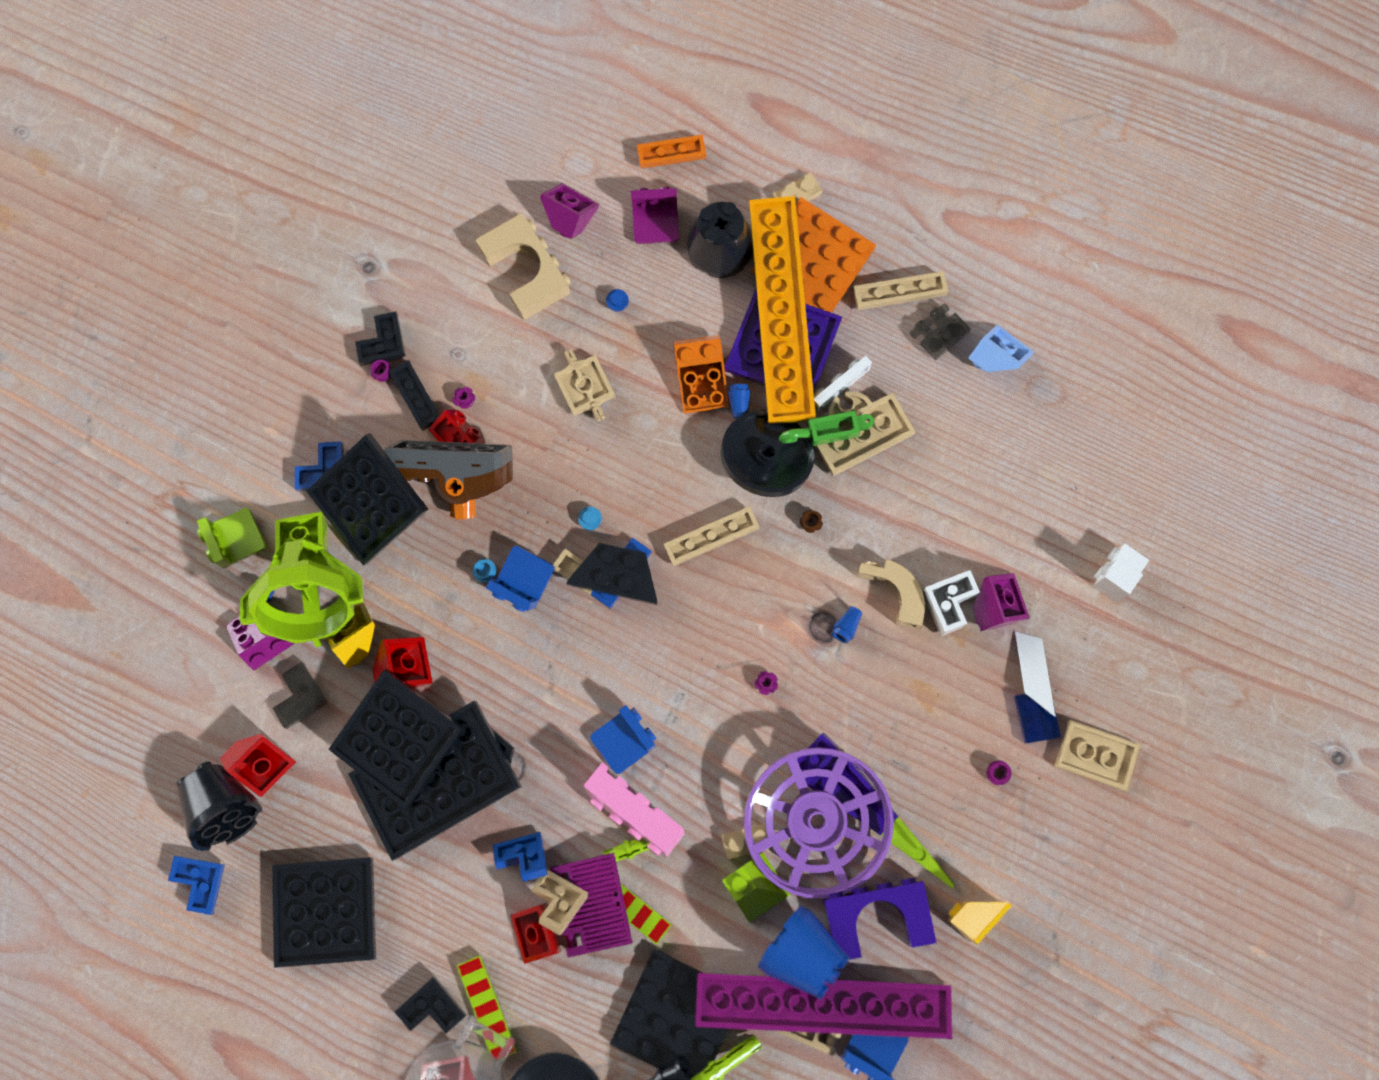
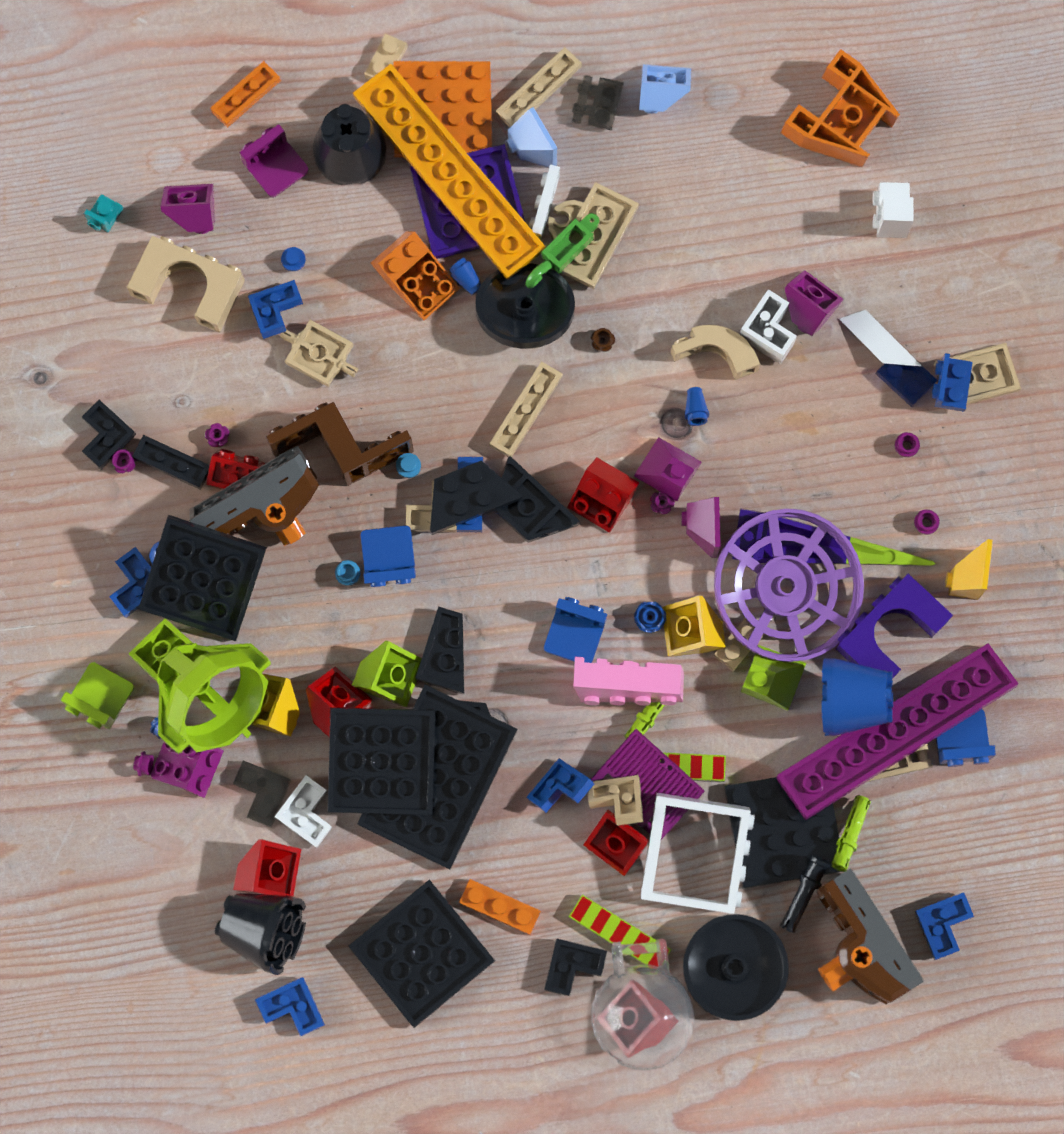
camera: 40 degrees left, 0 degrees up
(228, 612) = (143, 764): none -> magenta plate
(311, 735) = (298, 813): none -> white plate
(410, 918) = (499, 907): none -> orange plate
(457, 672) = (388, 673): none -> lime slope
(501, 174) = (103, 213): none -> teal bracket
(510, 685) = (443, 655): none -> black wing
(546, 465) = (340, 443): none -> reddish brown bracket
(575, 322) = (269, 304): none -> blue plate
(621, 958) = (738, 870): none -> white window
(662, 623) = (538, 512): none -> black wing
(685, 763) = (657, 613): none -> blue plate
(717, 801) = (692, 628): none -> yellow slope
(723, 644) = (603, 494): none -> red slope
(784, 723) = (703, 524): none -> magenta slope
(789, 659) = (667, 469): none -> magenta slope
(864, 326) = (531, 140): none -> light blue slope
(977, 844) = (931, 516): none -> magenta plate
(1071, 748) = (952, 384): none -> blue bracket
(1134, 473) = (848, 116): none -> orange wedge

